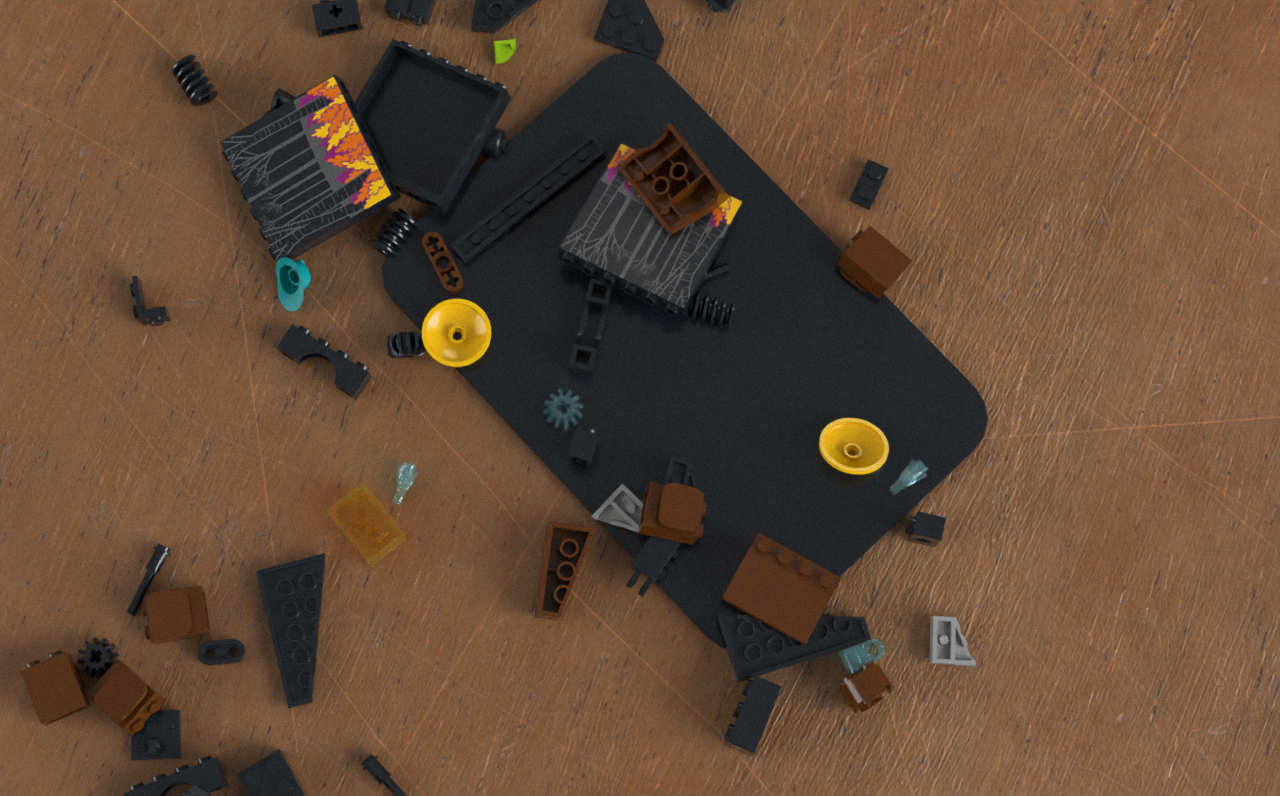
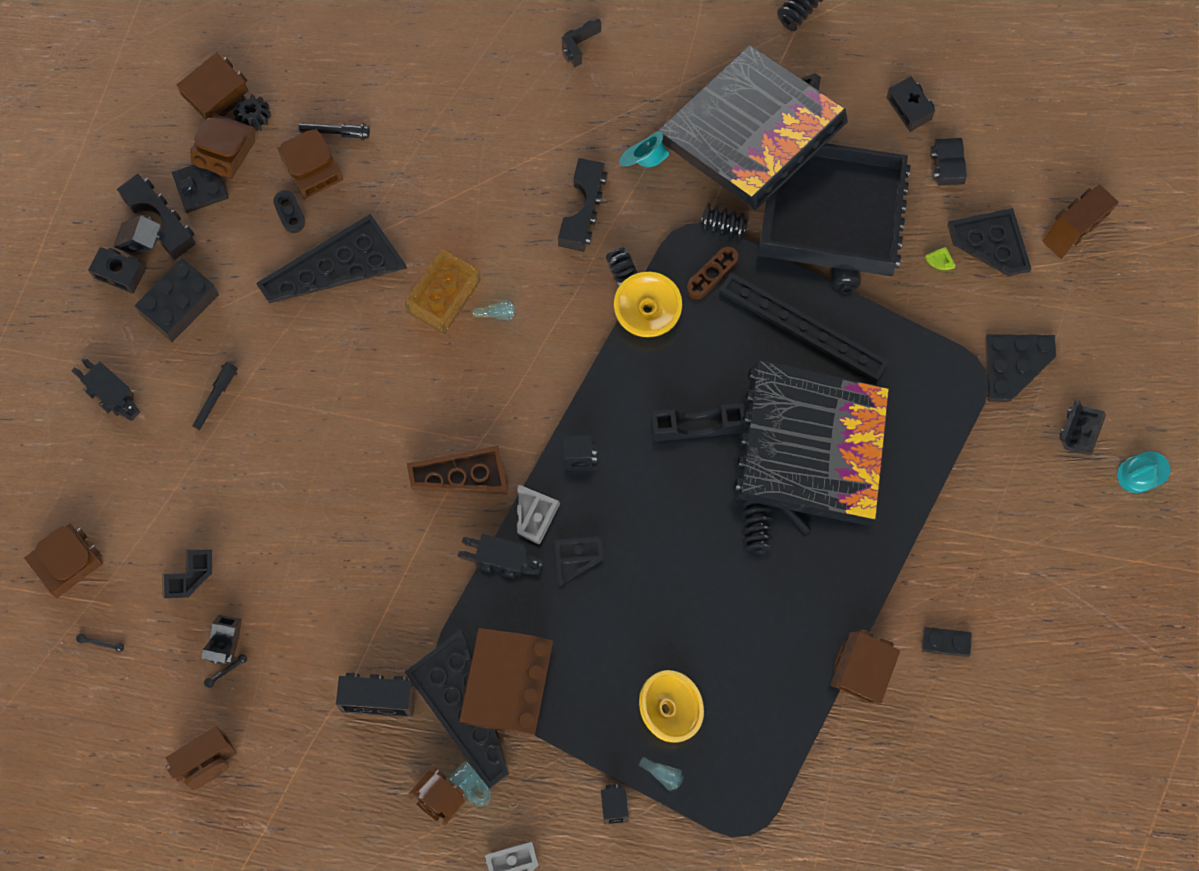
camera: 75 degrees right, 5 degrees down
(557, 414) = (606, 432): clear light blue gear -> none
(672, 512) = (543, 553): reddish brown brick -> none
(673, 181) = (867, 446): reddish brown piece -> none

